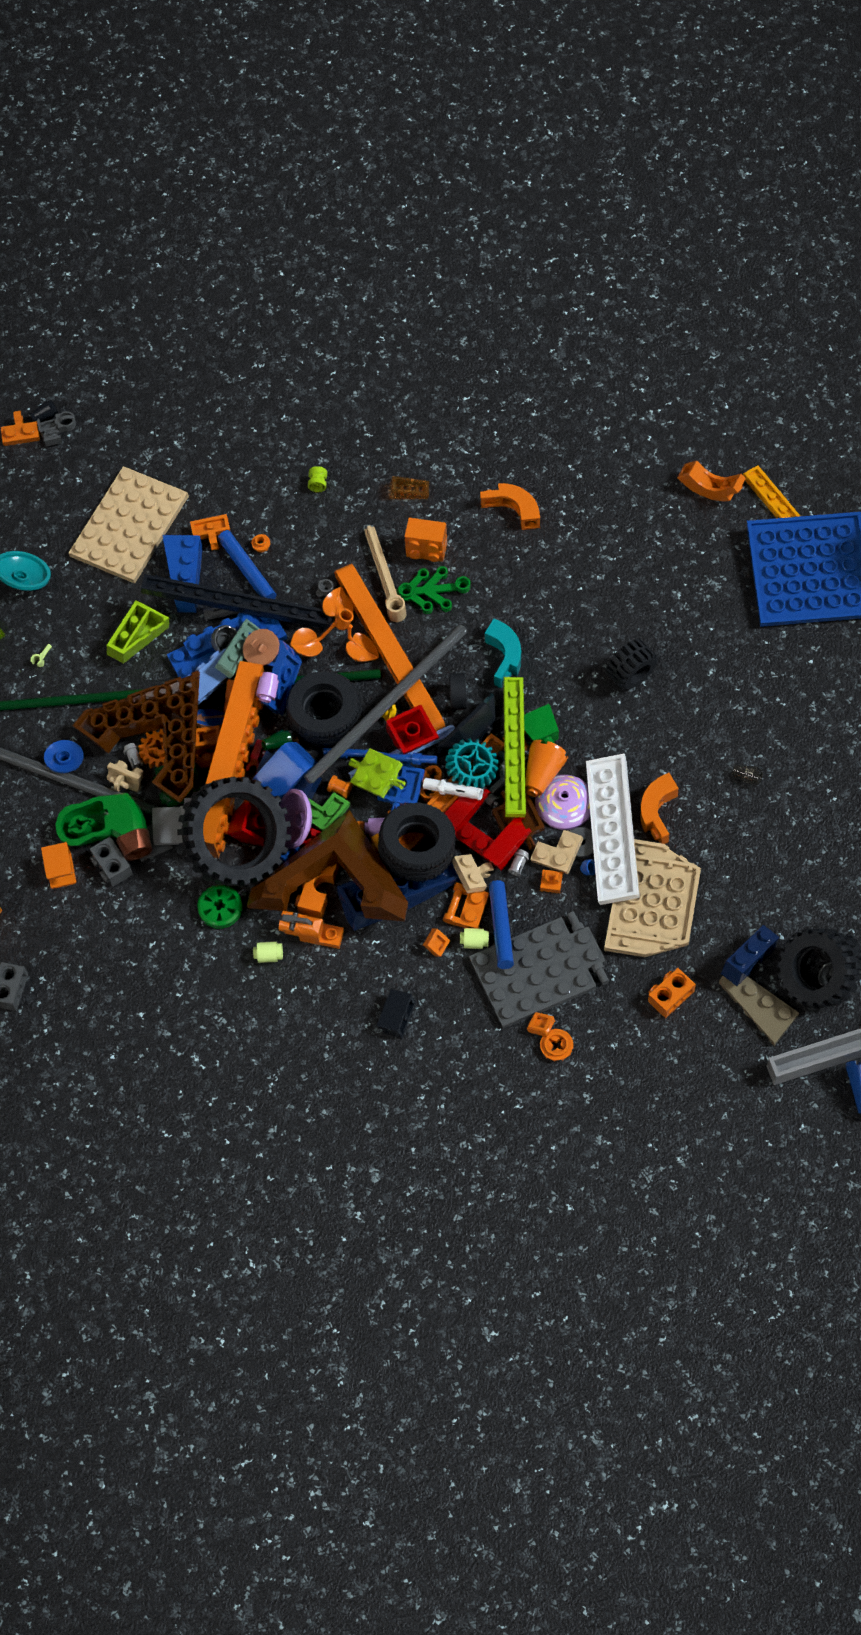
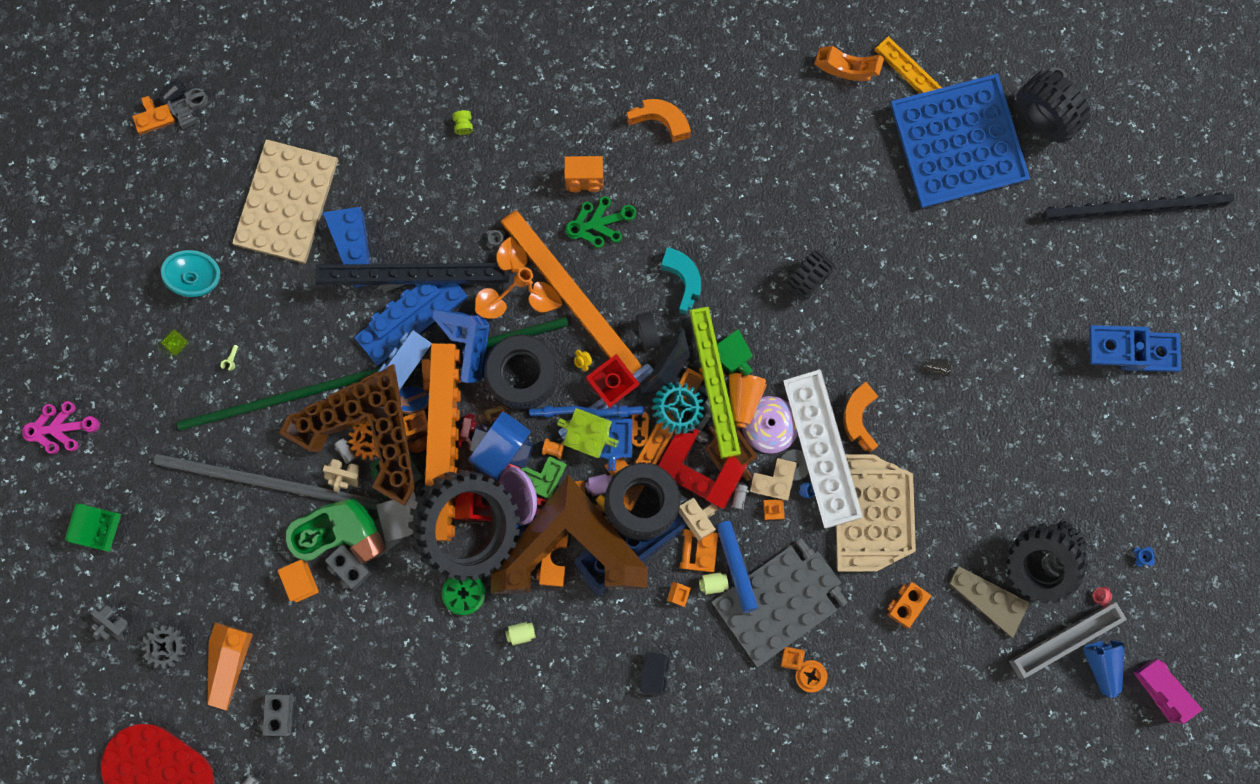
camera: 15 degrees left, 15 degrees up
(63, 750) = (273, 457): blue dish -> none
(136, 631) = (319, 319): lime wedge -> none
(210, 528) = (368, 193): orange plate -> none
(222, 637) = (409, 316): dark grey hair -> none
(234, 652) = (425, 327): sand green tile -> none
(246, 565) = (412, 228): blue piece -> none
(261, 647) = (449, 325): nougat piece -> none
(263, 547) = (425, 204): orange plate -> none
(267, 687) = (465, 368): lavender brick -> none
(276, 740) = (485, 415): dark green cone -> none
(311, 929) = (557, 603): orange plate -> none
(389, 700) = (581, 359): dark grey axle -> none
(393, 600) = (563, 240): tan piece -> none
(401, 493) = (546, 111): clear orange slope -> none
(445, 787) = (663, 435): white pin -> none
(756, 948) = (977, 557): dark blue arch -> none

